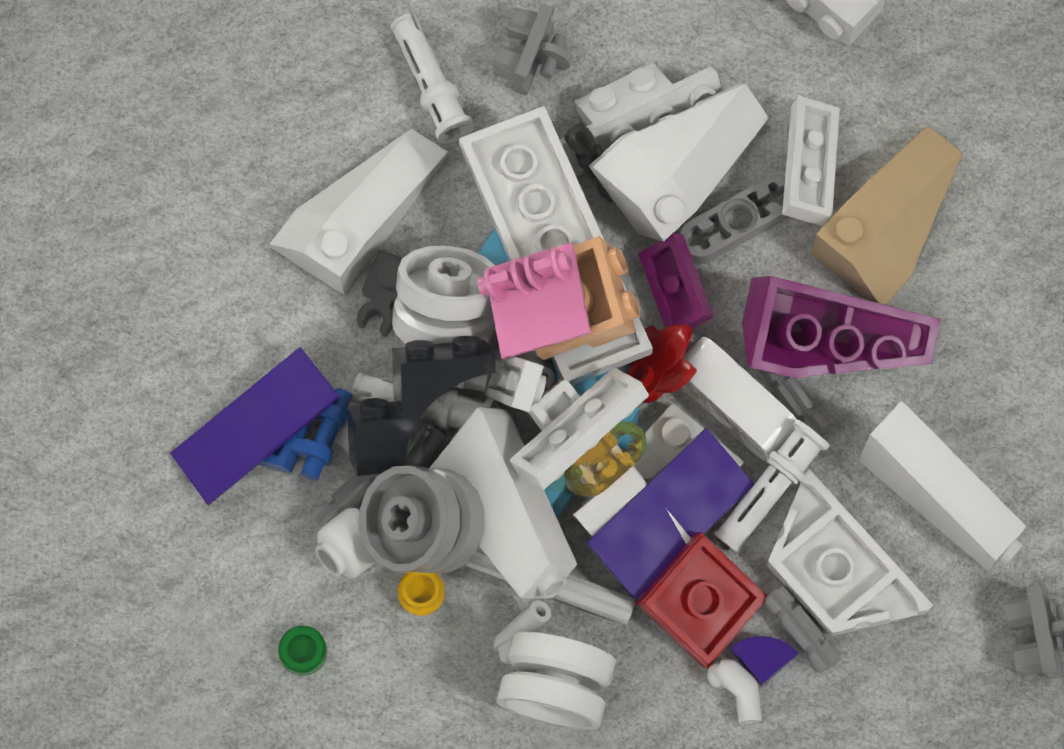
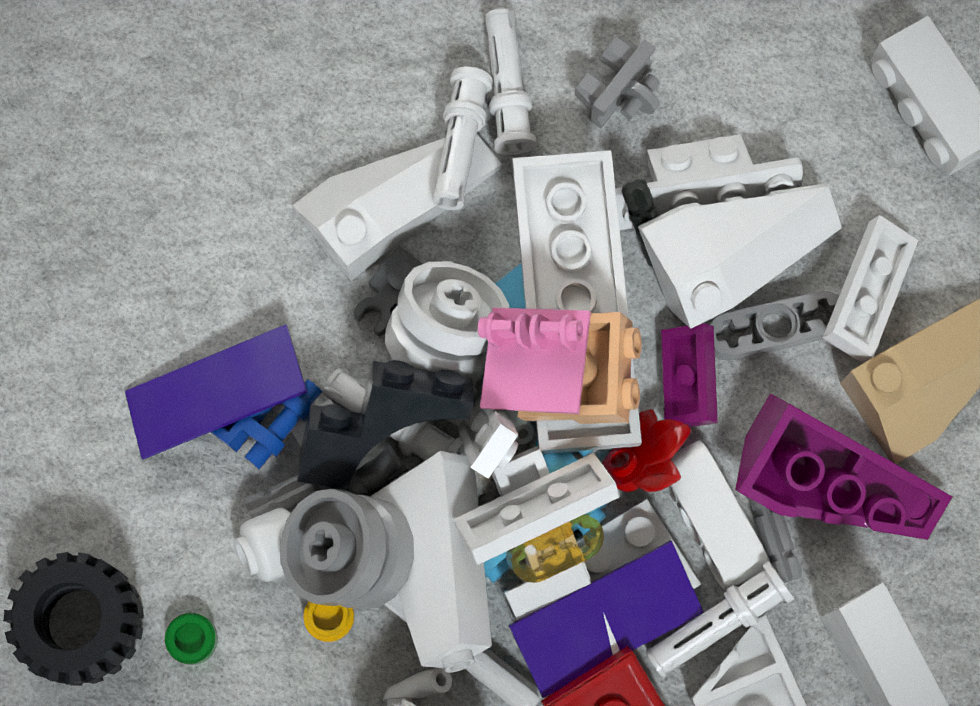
camera: 15 degrees right, 5 degrees up
(171, 629) = (34, 606): none -> black tyre
(402, 121) = (463, 120): none -> white pin

